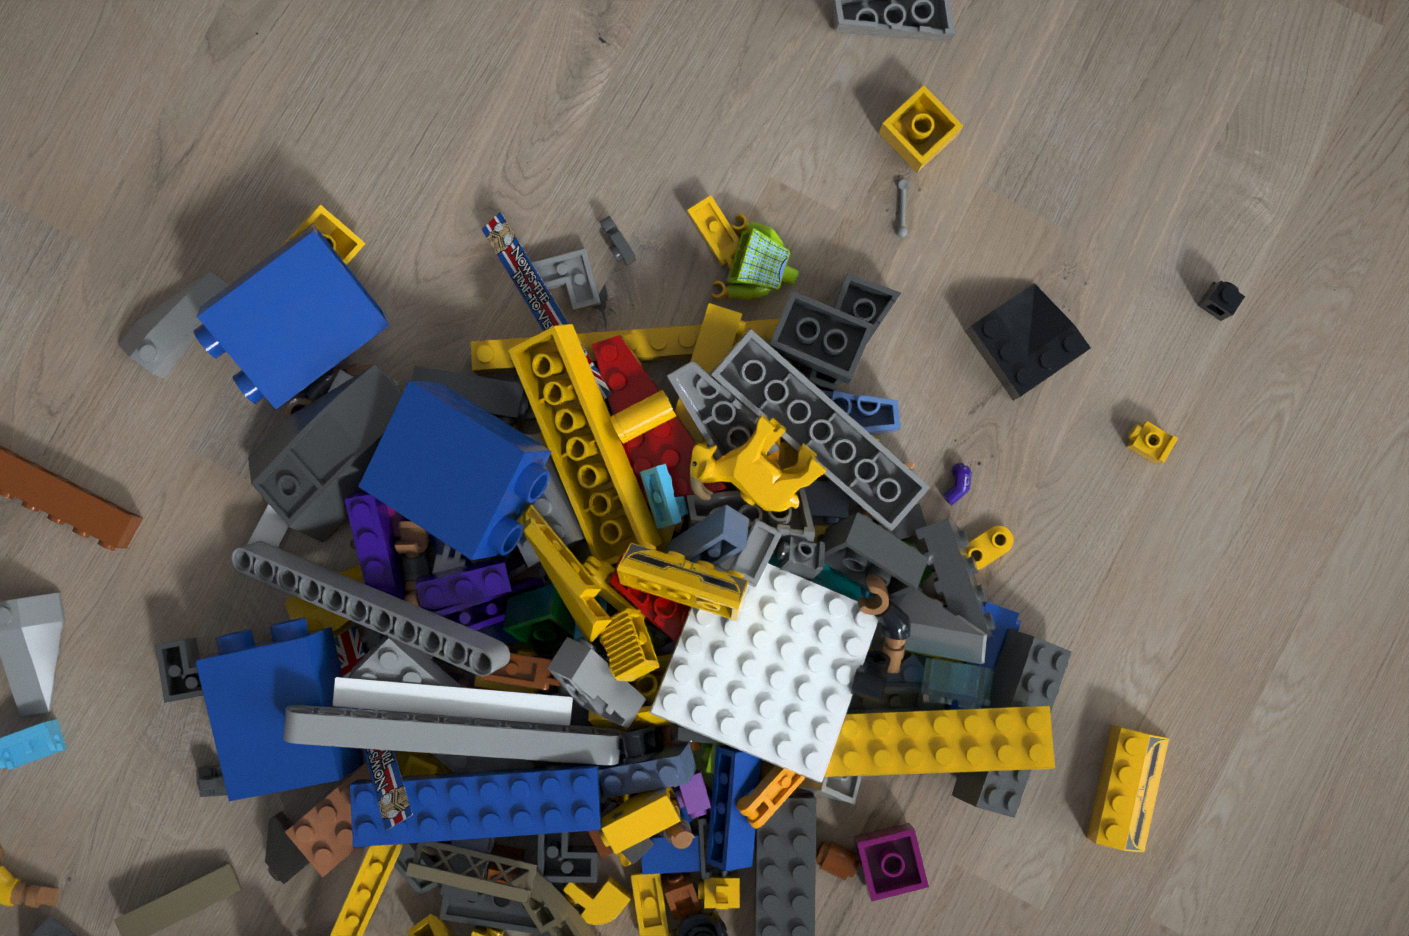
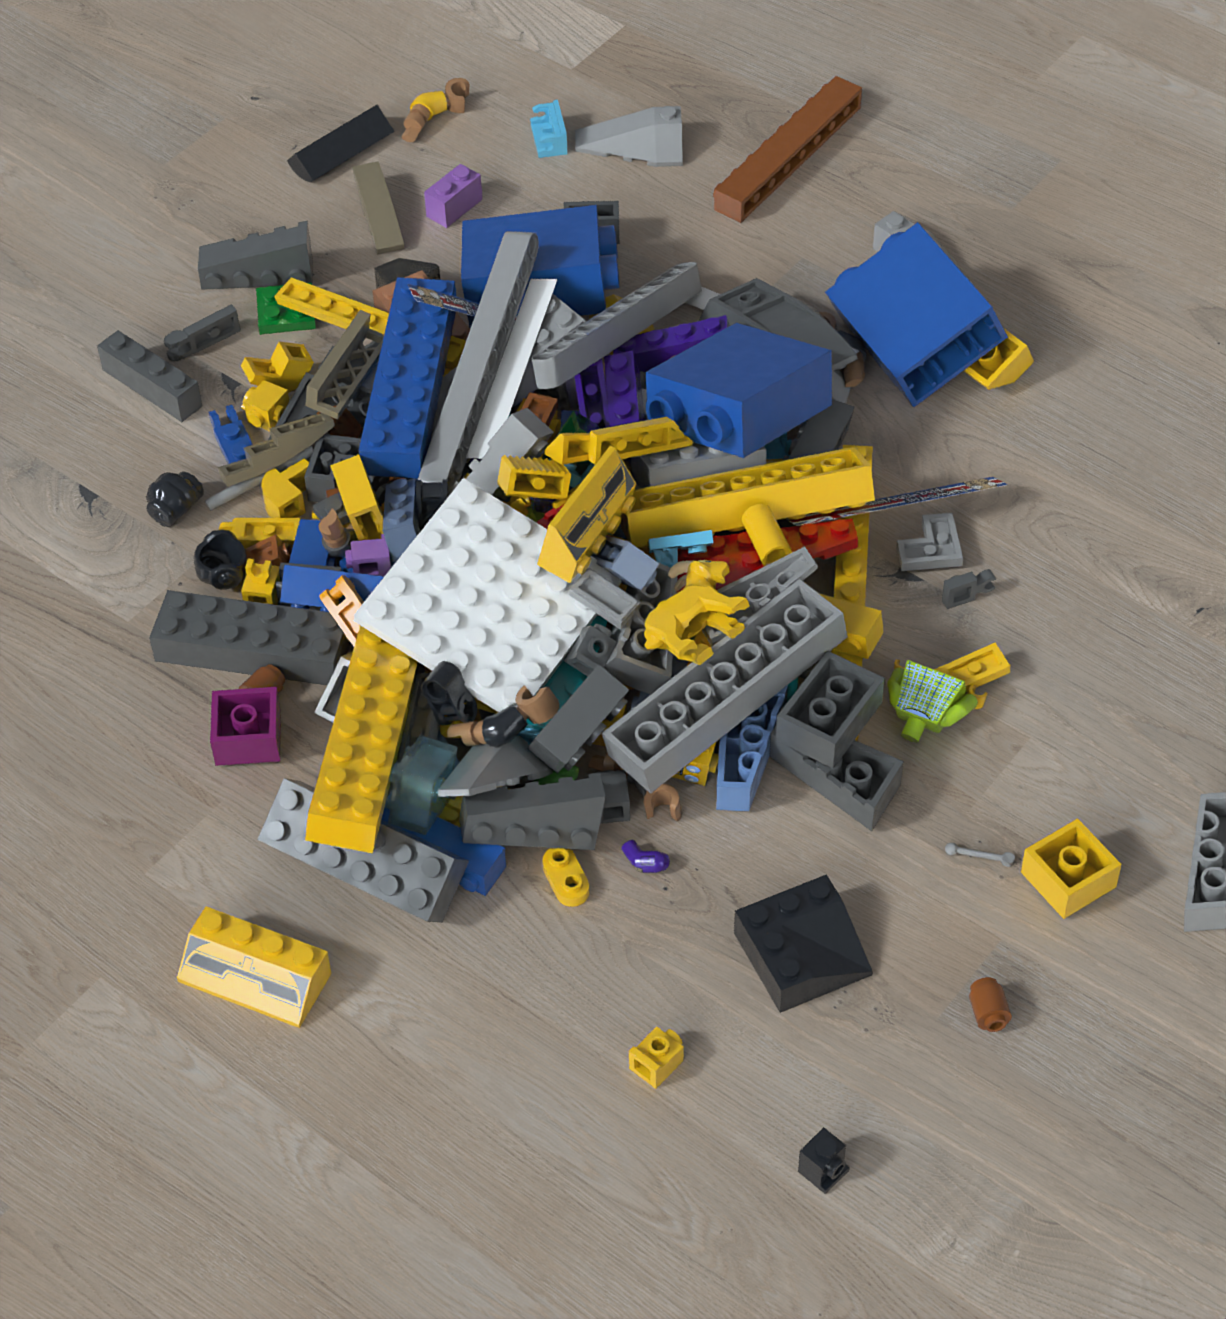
camera: 105 degrees right, 35 degrees down
(151, 826) = (453, 195): none -> medium lavender brick
(1056, 186) = (989, 1004): none -> dark orange brick

